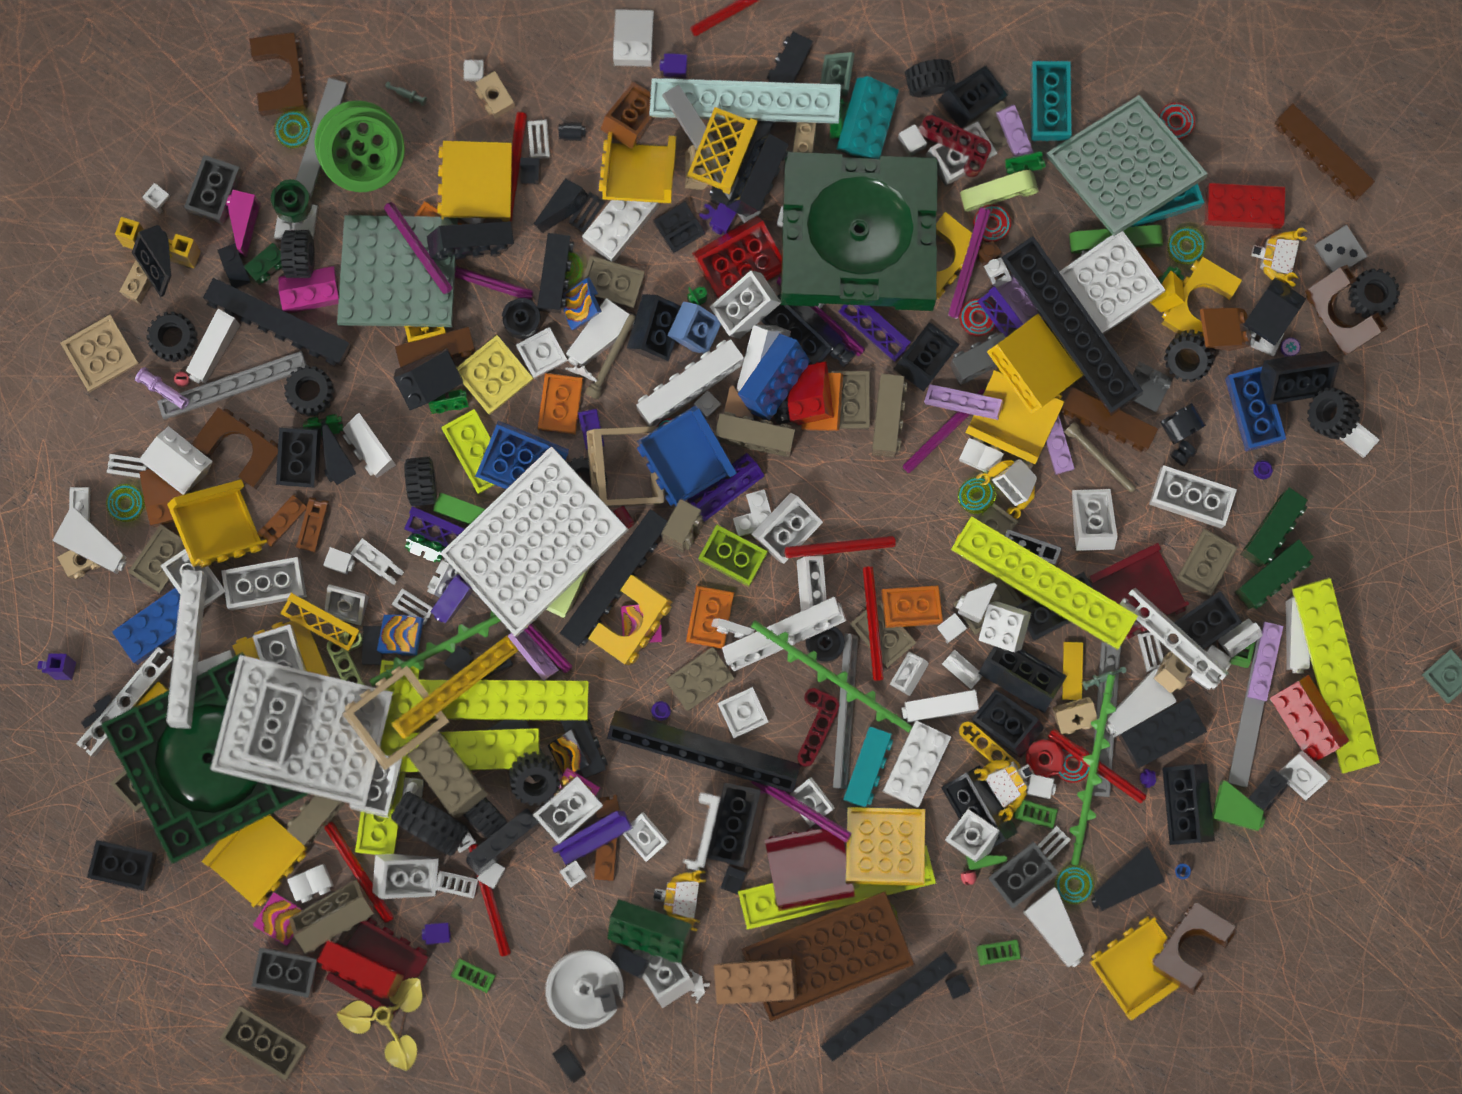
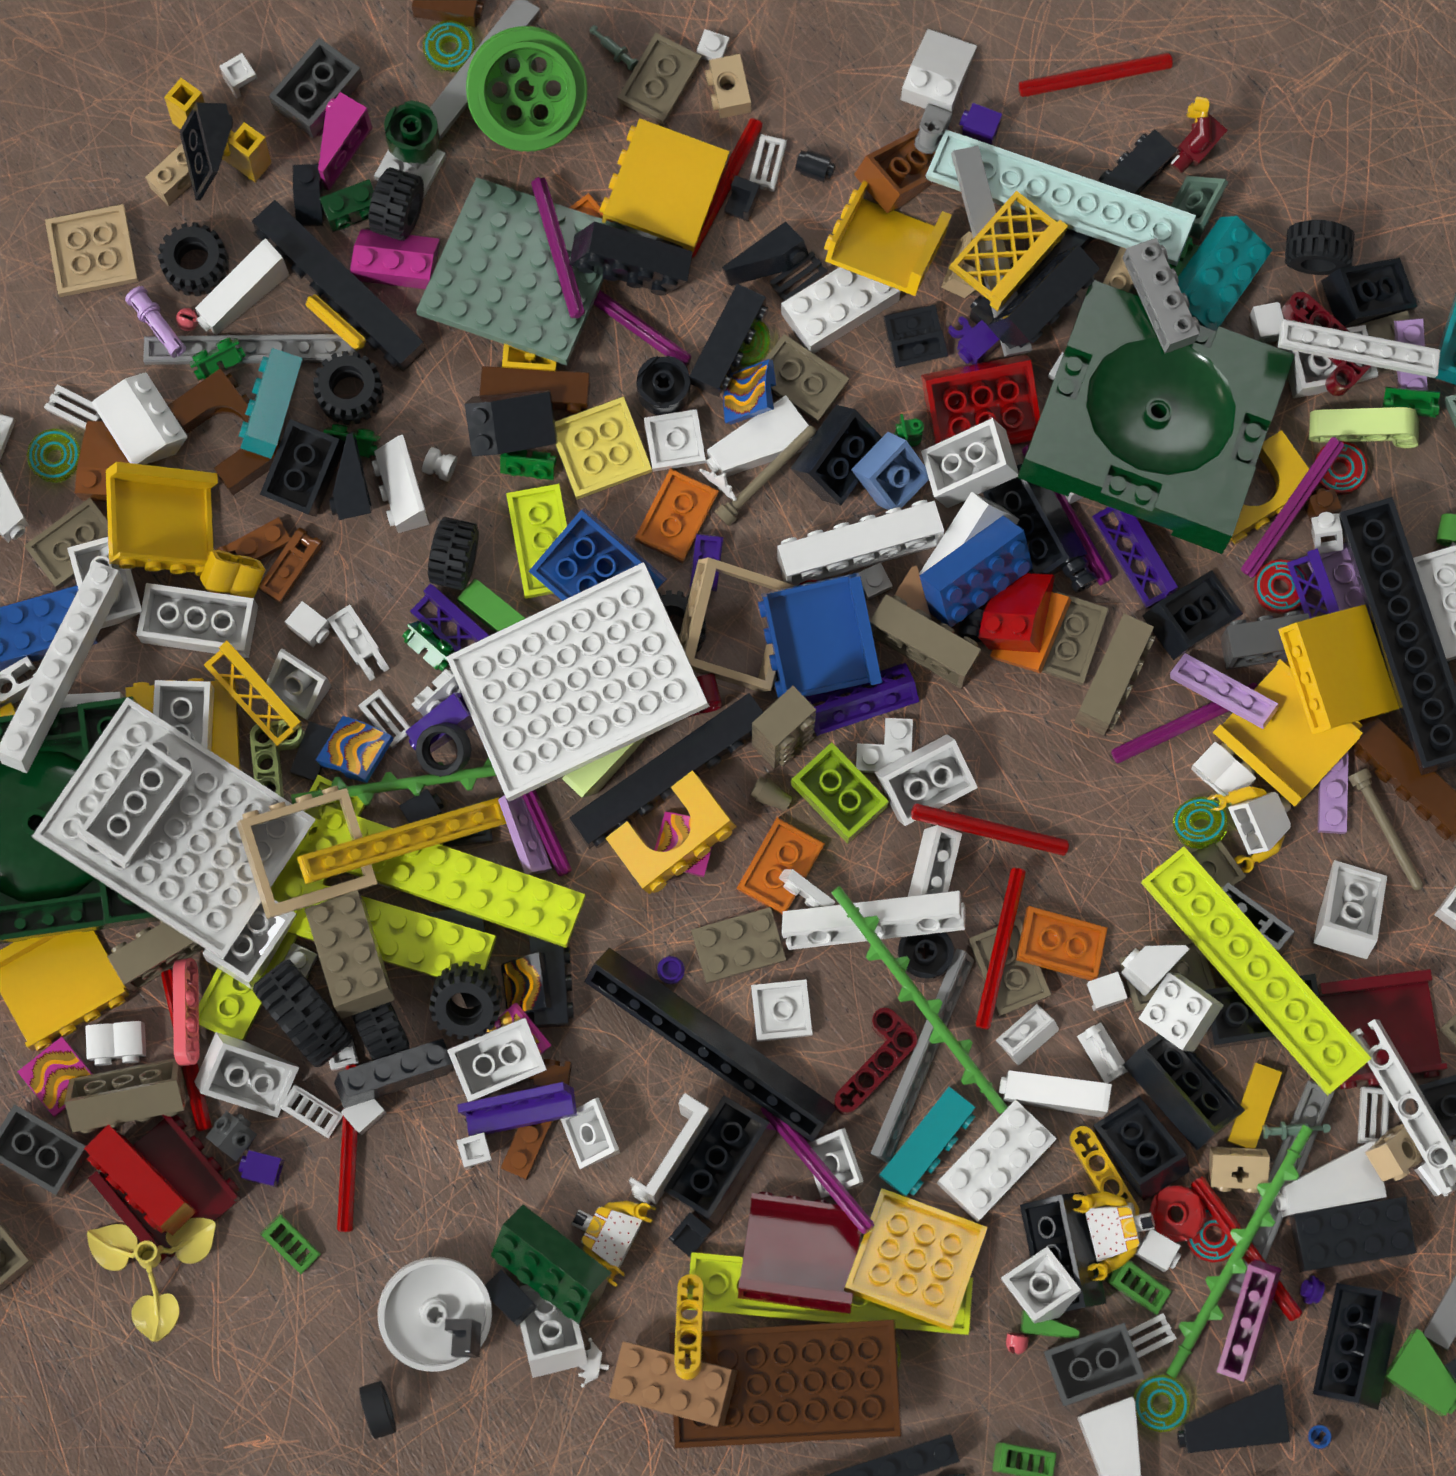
camera: 20 degrees right, 5 degrees down
(207, 404) = (225, 352): none -> green hinge
(261, 419) = (271, 402): none -> teal brick
(276, 545) = (232, 574): none -> yellow brick
(284, 348) = (335, 322): none -> yellow axle
(350, 848) = (186, 1011): none -> coral beam
(391, 422) = (440, 465): none -> white wheel
(409, 918) = (232, 1134): none -> dark grey brick
(445, 105) = (659, 78): none -> dark tan plate
(451, 626) = (424, 754): none -> black tyre
(642, 79) = (932, 128): none -> light grey piece
(687, 571) = (769, 793): none -> dark tan cone
(752, 941) = (689, 1326): none -> yellow beam
(826, 28) = (1202, 138): none -> dark red torso
(835, 148) = (1161, 295): none -> light grey brick
(978, 141) = (1359, 348): none -> white tile
(1113, 812) = (1249, 1320): none -> magenta brick

